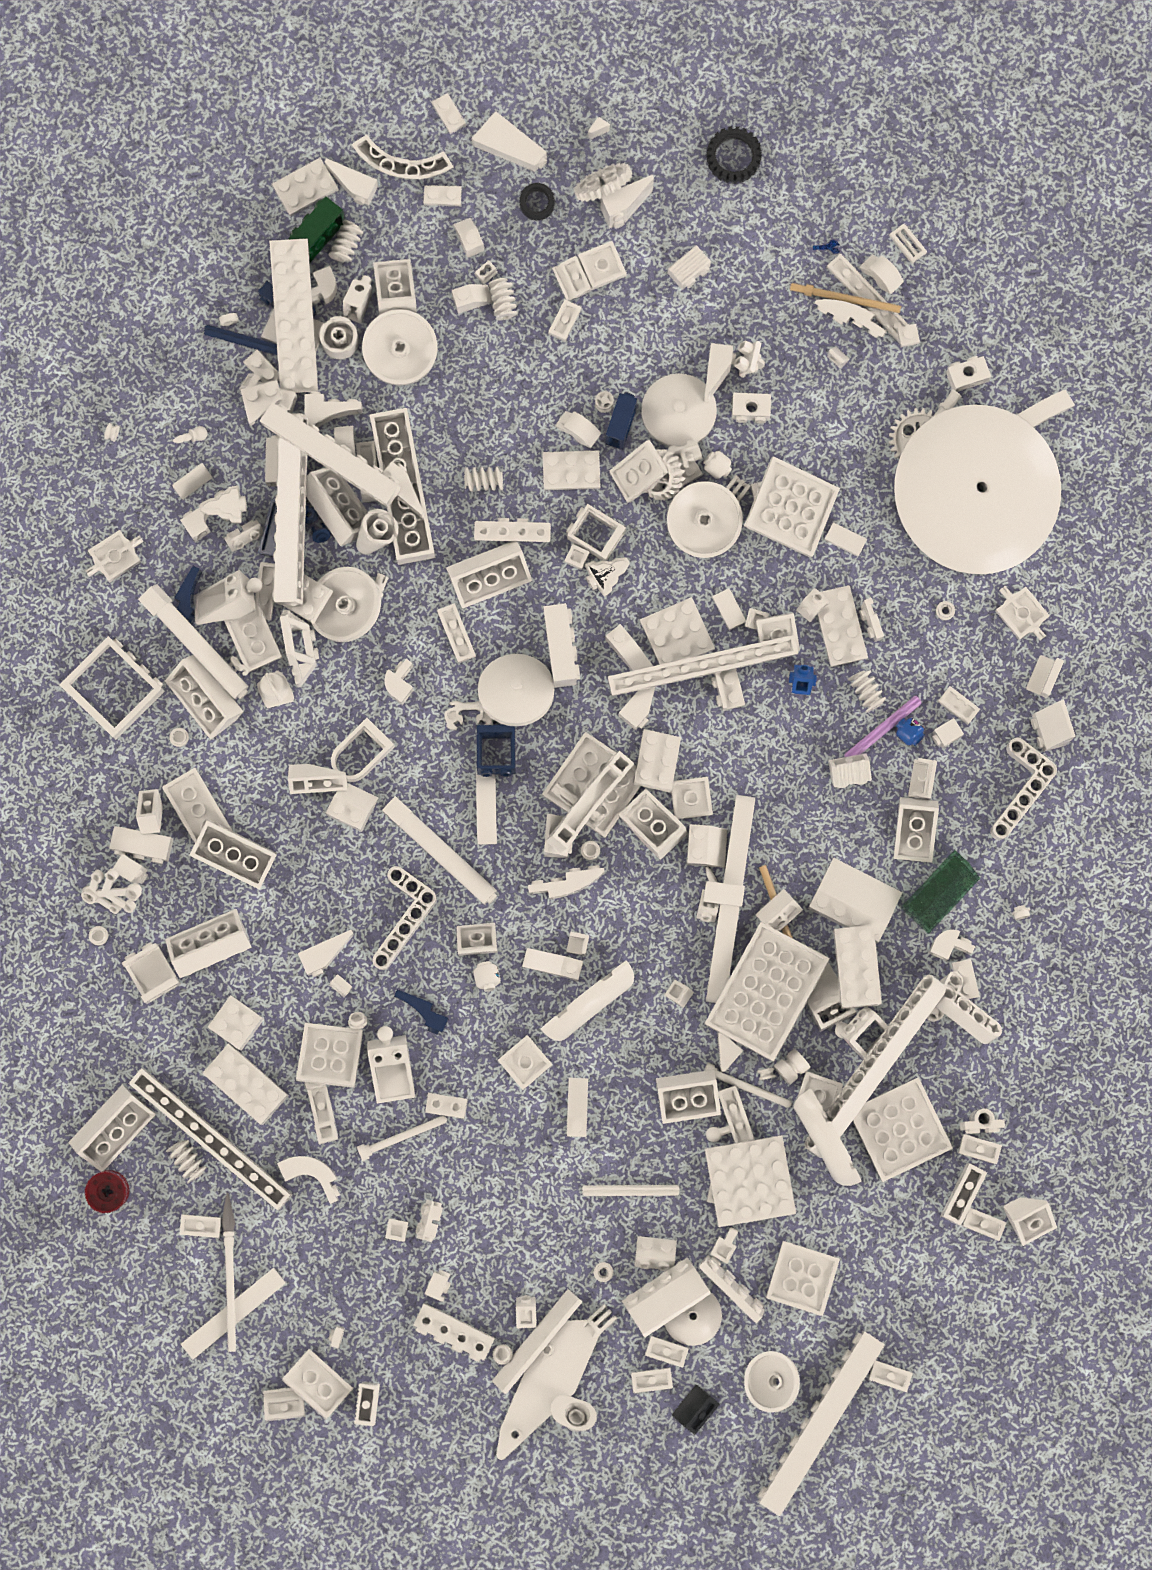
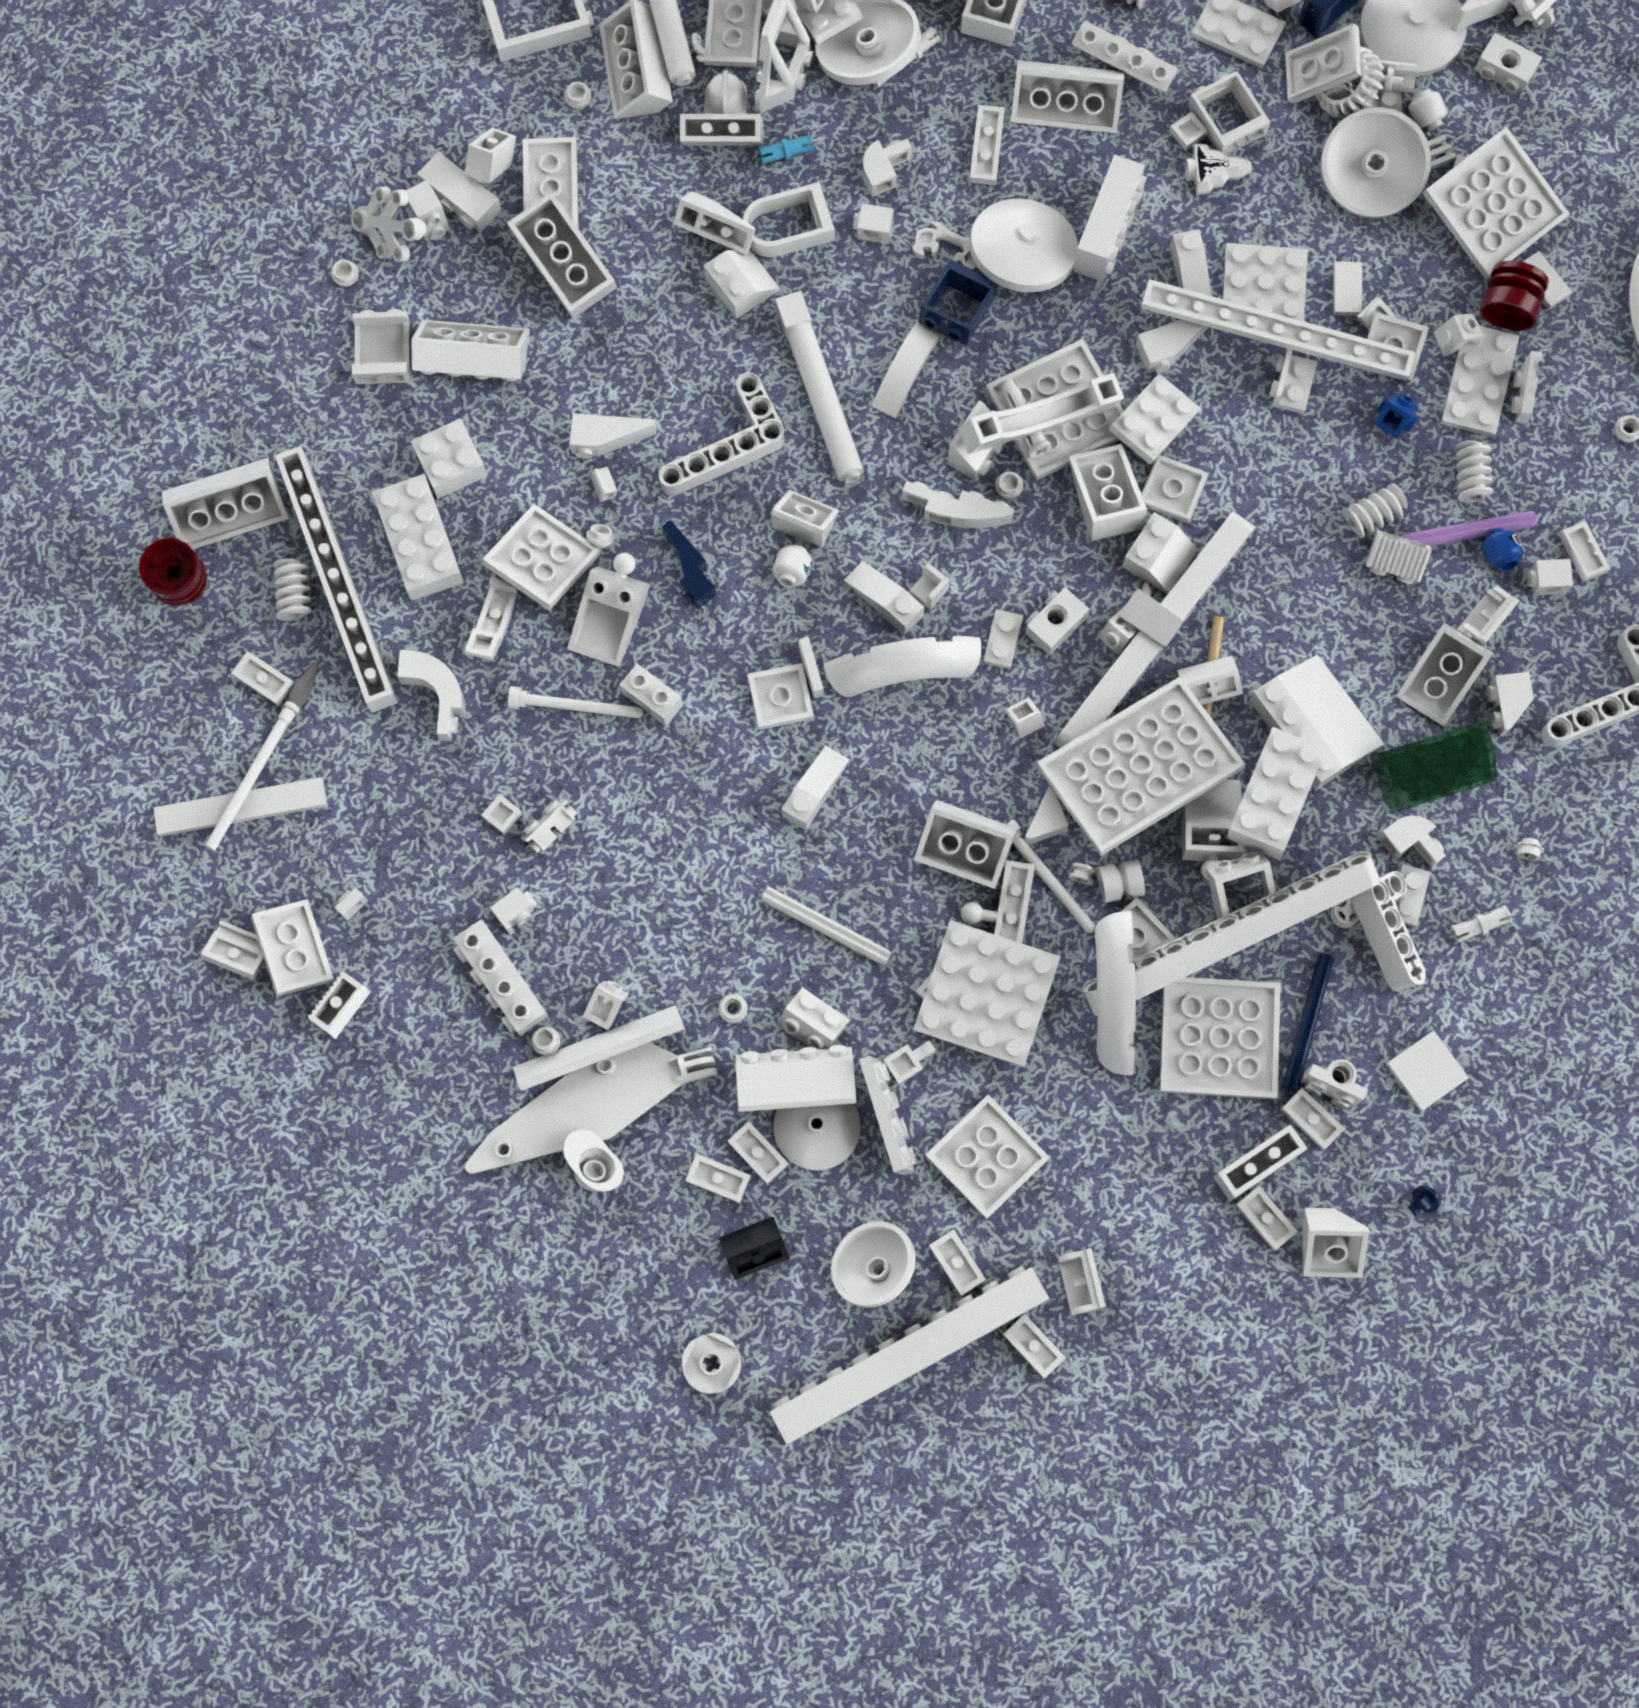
camera: 30 degrees right, 5 degrees down
(285, 714) = (721, 129): none -> white brick
(331, 703) = (785, 149): none -> medium azure pin
(414, 724) = (874, 223): none -> white brick
(533, 1035) = (810, 667): none -> white tile
(639, 951) = (1003, 639): none -> white plate
(668, 911) = (1049, 635): none -> white brick
(700, 1484) = (705, 1347): none -> white plate
(819, 1351) = (957, 1262): none -> white plate
(821, 747) = (1375, 509): none -> white piece
(834, 559) = (1514, 295): none -> dark red wheel
(897, 1322) = (1081, 1282): none -> white hinge
(946, 1090) = (1308, 1022): none -> dark blue axle
(963, 824) = (1510, 698): none -> white slope
(1016, 974) = (1481, 923): none -> white pin
(1030, 1082) = (1427, 1071): none -> white tile
(1069, 1162) = (1424, 1199): none -> dark blue plate

